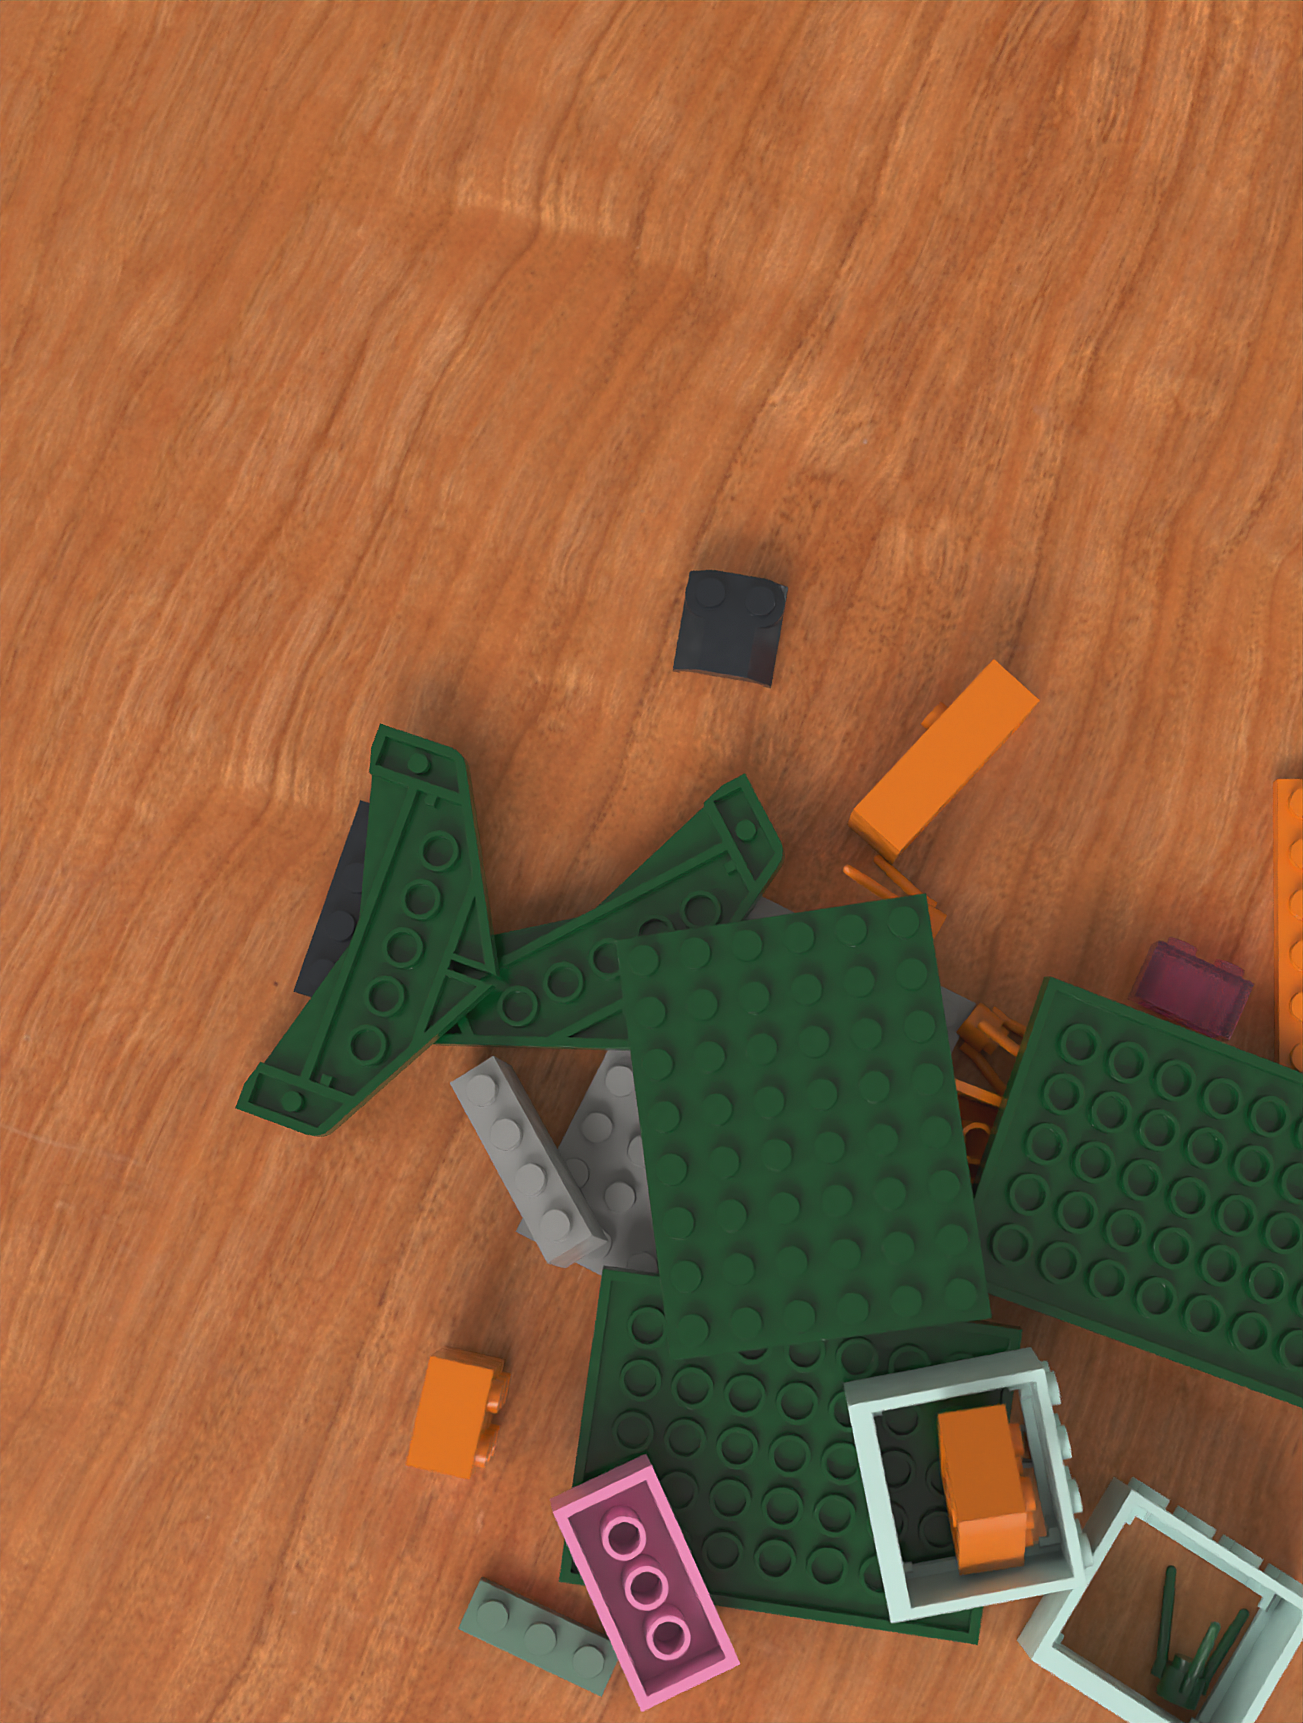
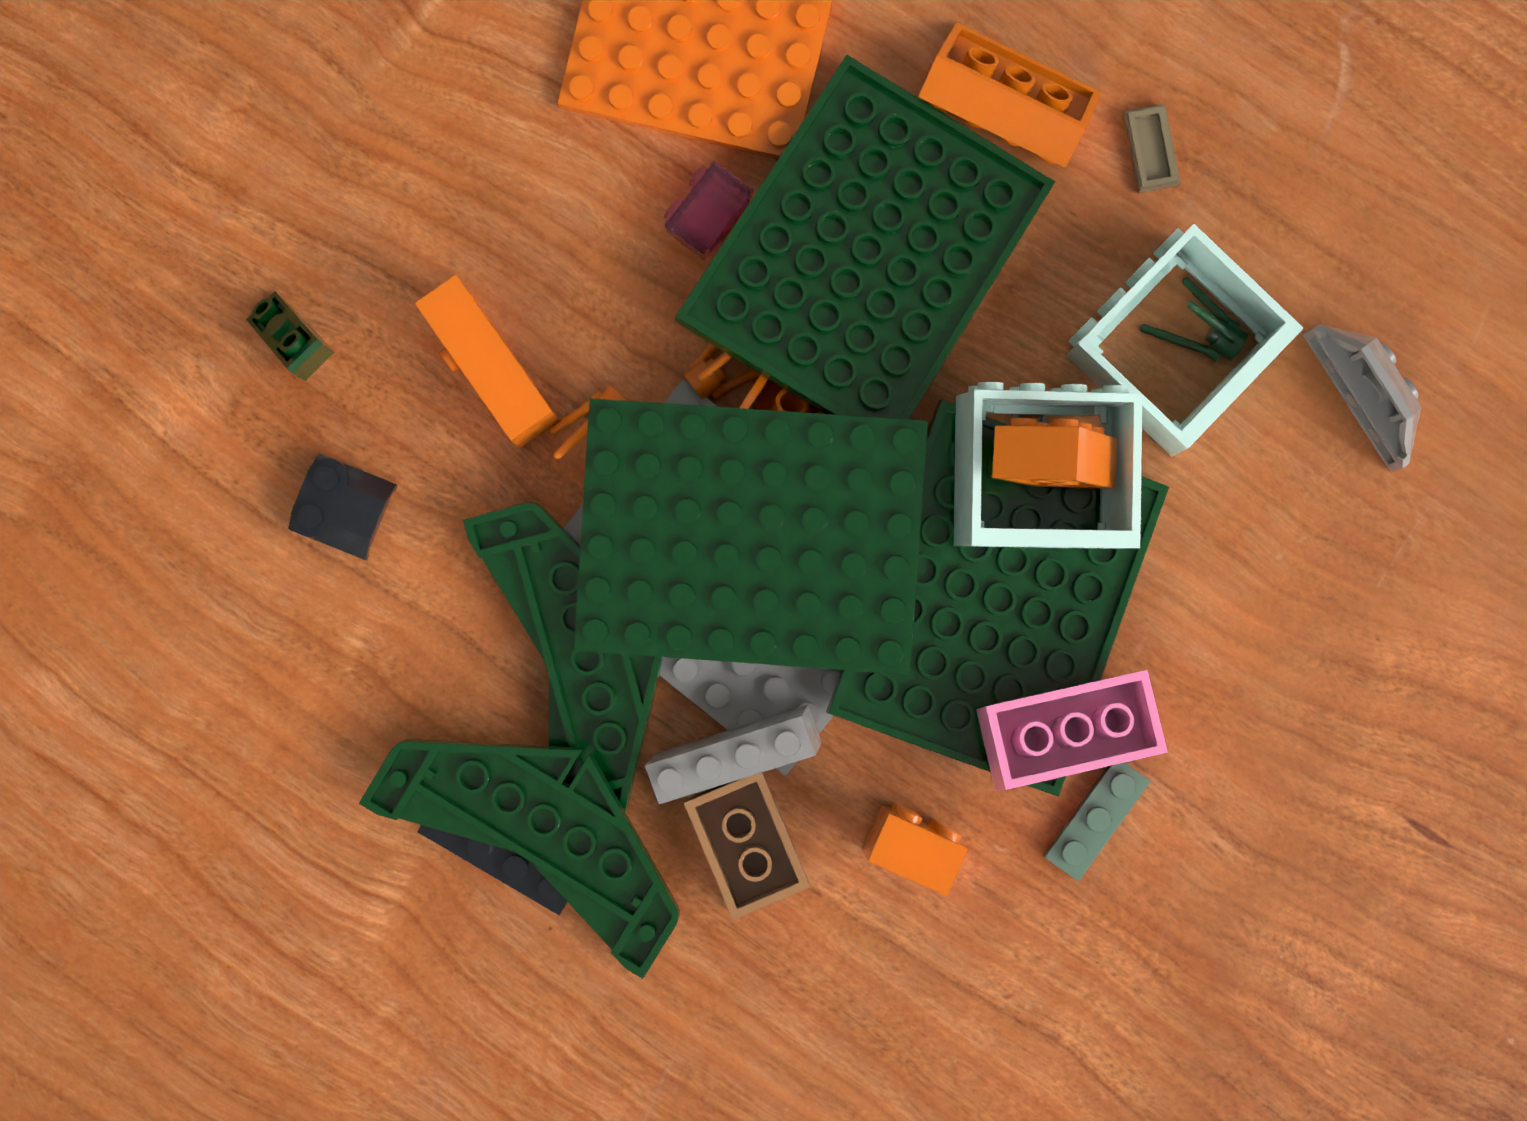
camera: 85 degrees left, 5 degrees up
(422, 1201) = (746, 844): none -> medium nougat brick
(920, 522) = (289, 336): none -> dark green slope

